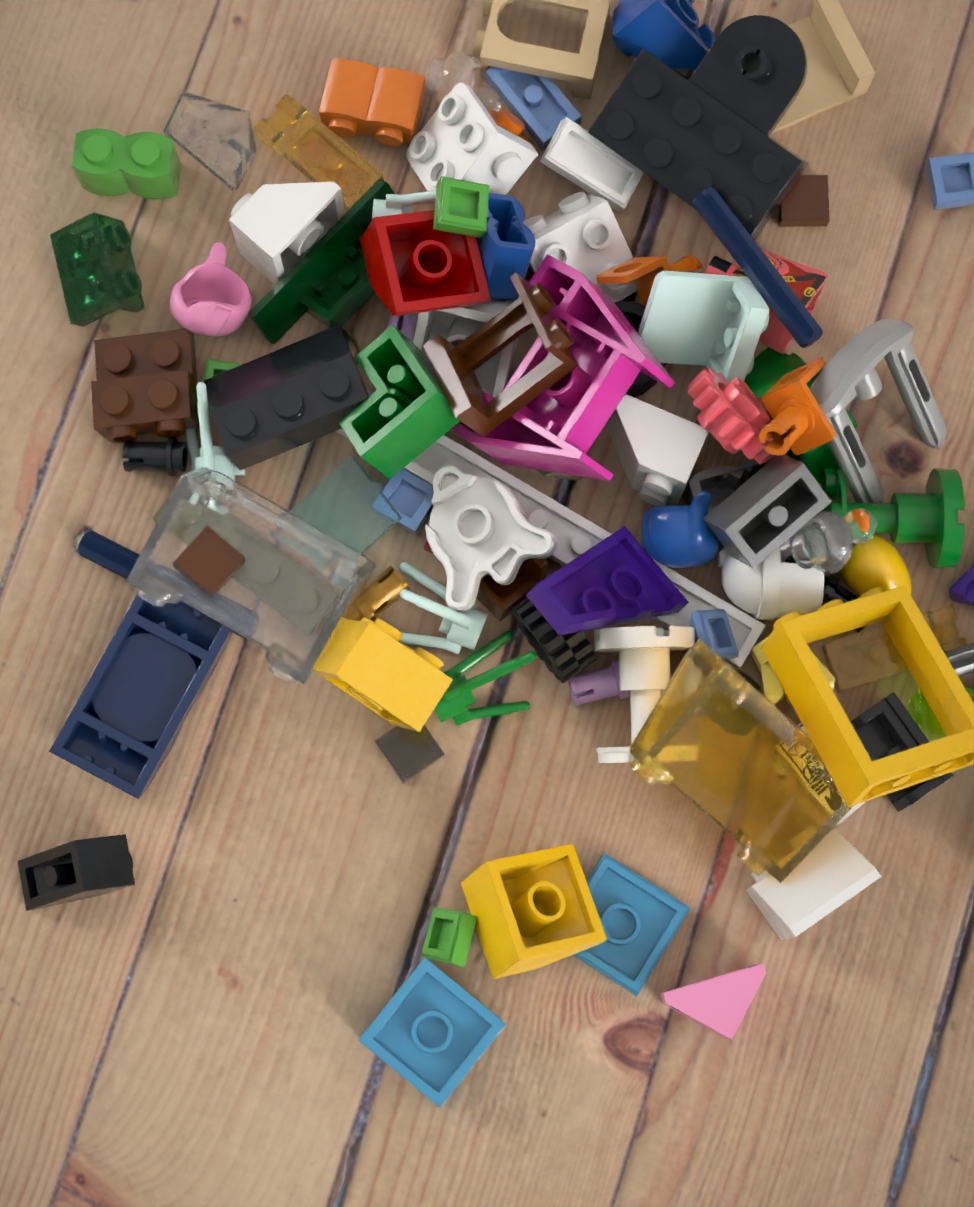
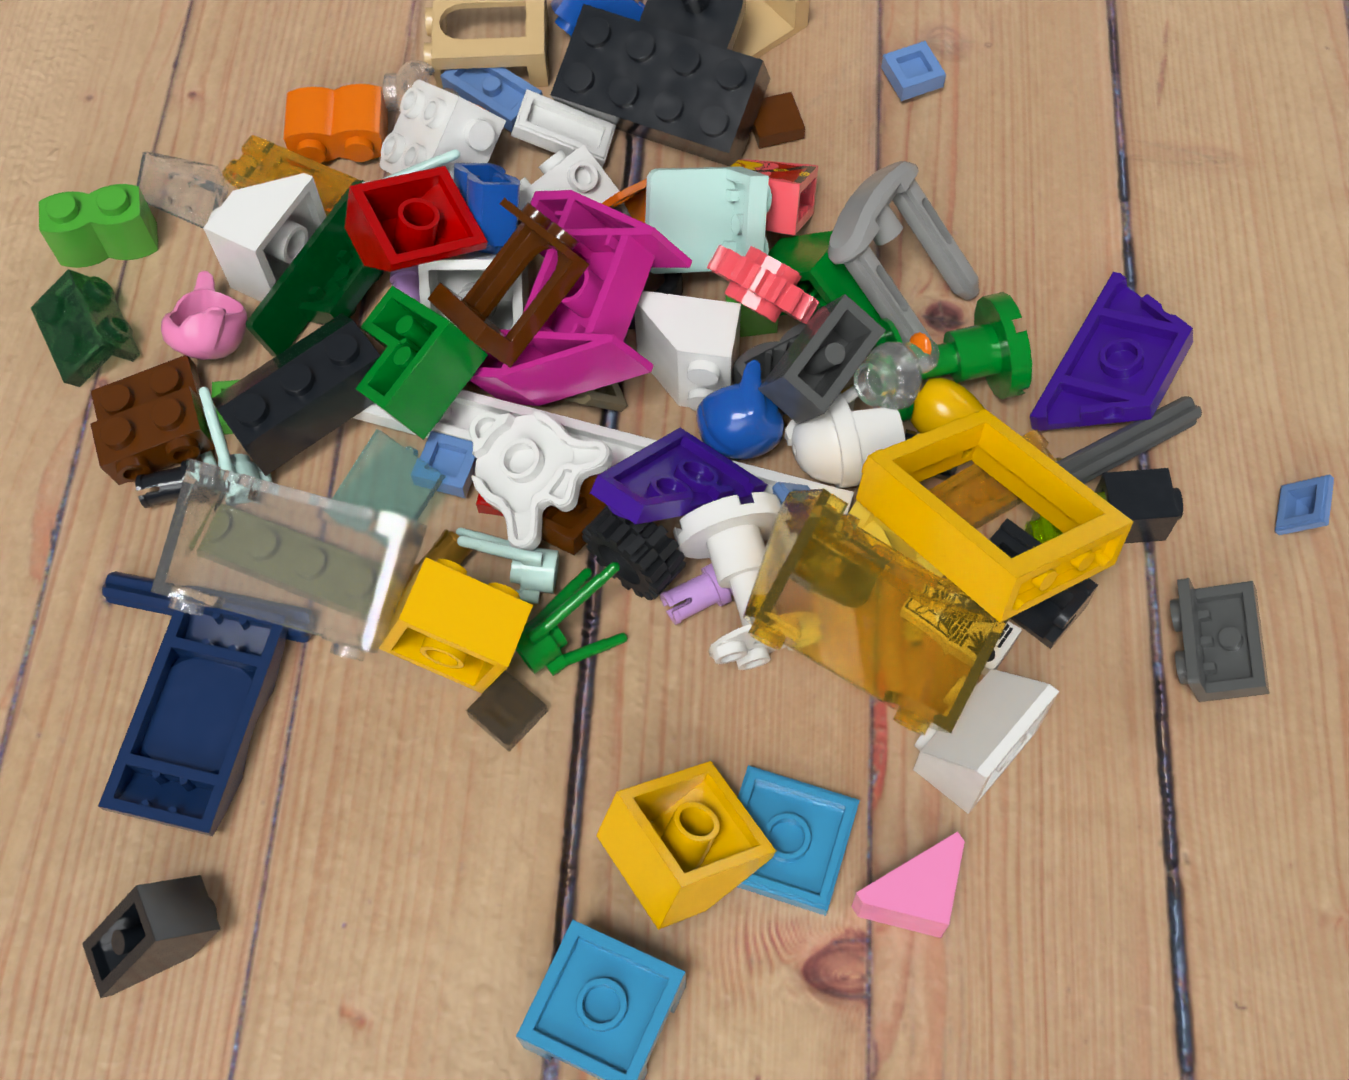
camera: 10 degrees left, 15 degrees down
(209, 562) = (244, 560): reddish brown tile -> none
(449, 936) = (598, 896): bright green tile -> none
(461, 207) = (437, 164): bright green tile -> none
(757, 267) = (748, 153): dark blue axle -> none
(795, 414) = (825, 263): orange bracket -> none

